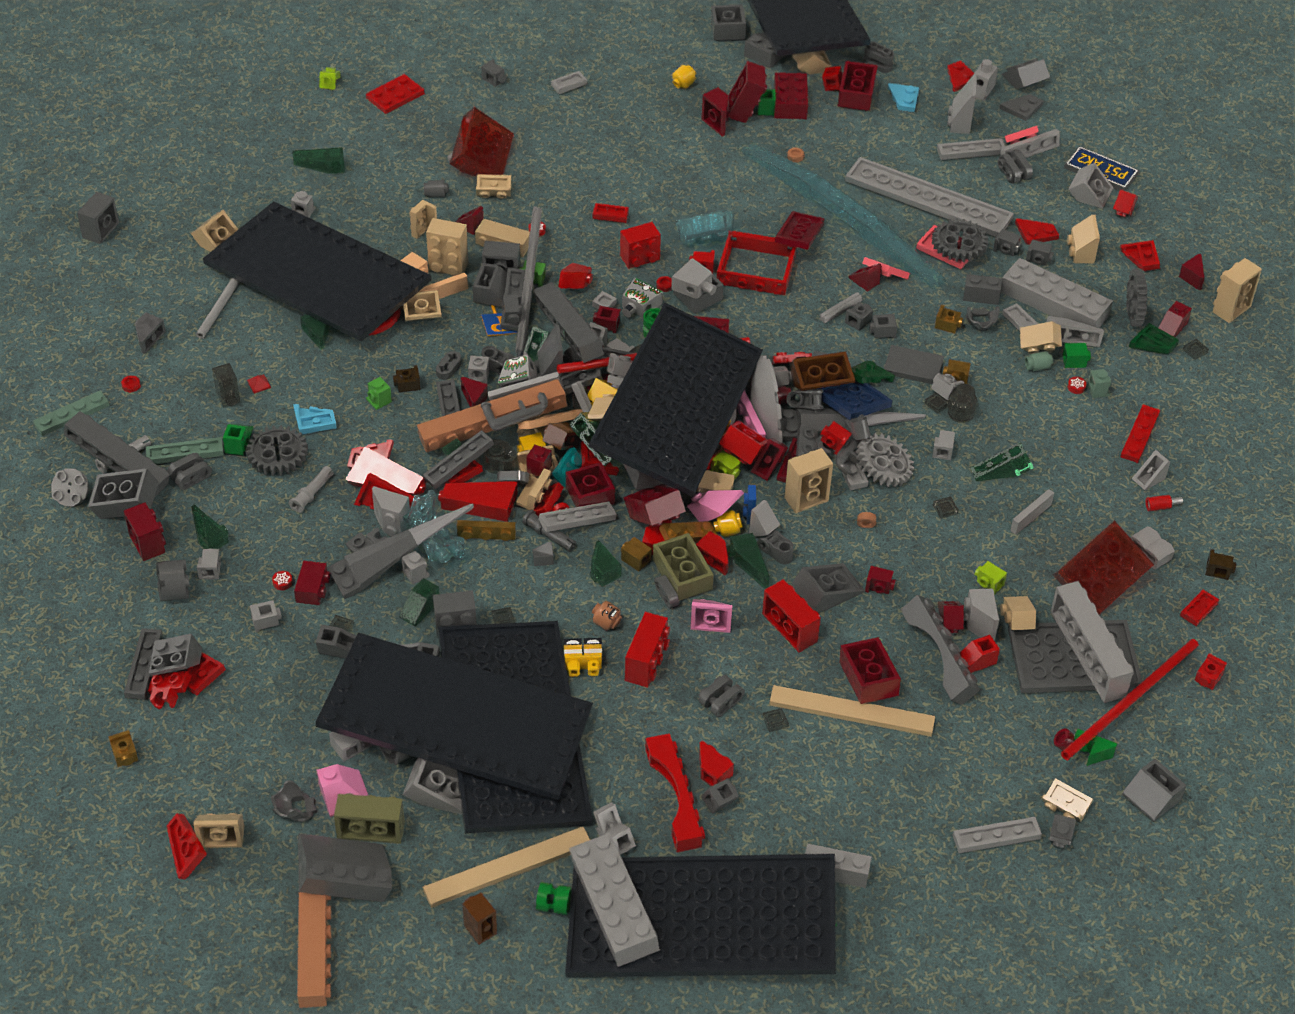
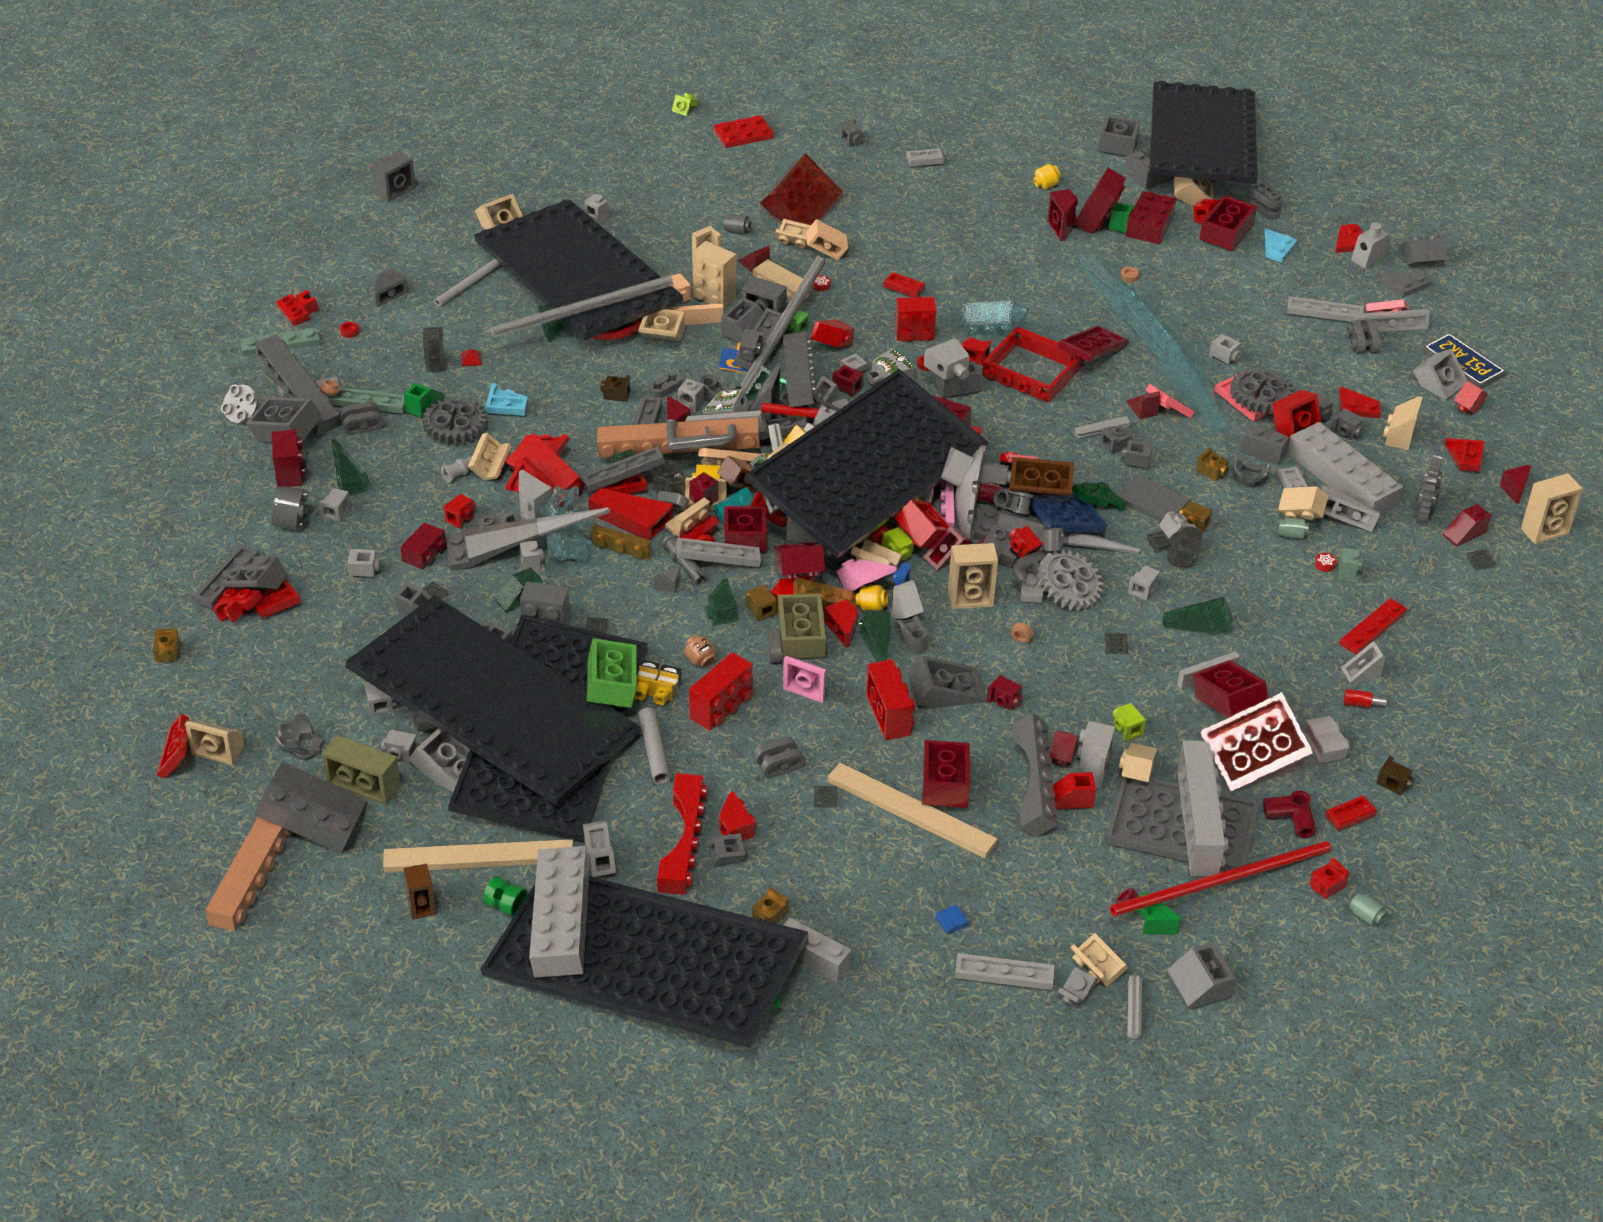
camera: 20 degrees right, 5 degrees down
(70, 375) = (298, 308): none -> red plate
(148, 449) = (330, 387): none -> nougat plate
(282, 580) = (397, 537): red tile -> none
(322, 160) = (638, 174): clear green slope -> none
(326, 539) = (459, 510): none -> red brick
(330, 480) = (489, 457): none -> tan bracket
(339, 780) = (355, 727): bright pink slope -> none
(343, 310) = (579, 306): none -> light grey axle
(378, 393) = (580, 393): bright green brick -> none
(388, 784) = (399, 745): none -> light grey brick
(526, 186) = (827, 239): none -> light nougat brick
(549, 661) = (611, 673): none -> bright green brick
(609, 716) = (654, 746): none -> light grey piece
(751, 381) = (956, 466): none -> light grey slope
(781, 838) = (771, 906): none -> pearl gold brick
(909, 207) = (1225, 349): none -> light grey brick
(928, 196) = (1255, 344): light grey plate -> none
(932, 801) = (951, 919): none -> blue tile
(962, 108) = (1333, 268): light grey slope -> none
(998, 255) = (1296, 412): none -> red brick
(1062, 525) = (1229, 688): none -> dark red brick
(1075, 355) = (1337, 532): green brick -> none
(1112, 833) = (1134, 1007): none -> light grey axle
(1150, 617) = (1296, 806): none -> dark red piece
(1154, 340) = (1436, 539): dark green wing -> none
(1252, 689) = (1368, 909): none -> sand green brick

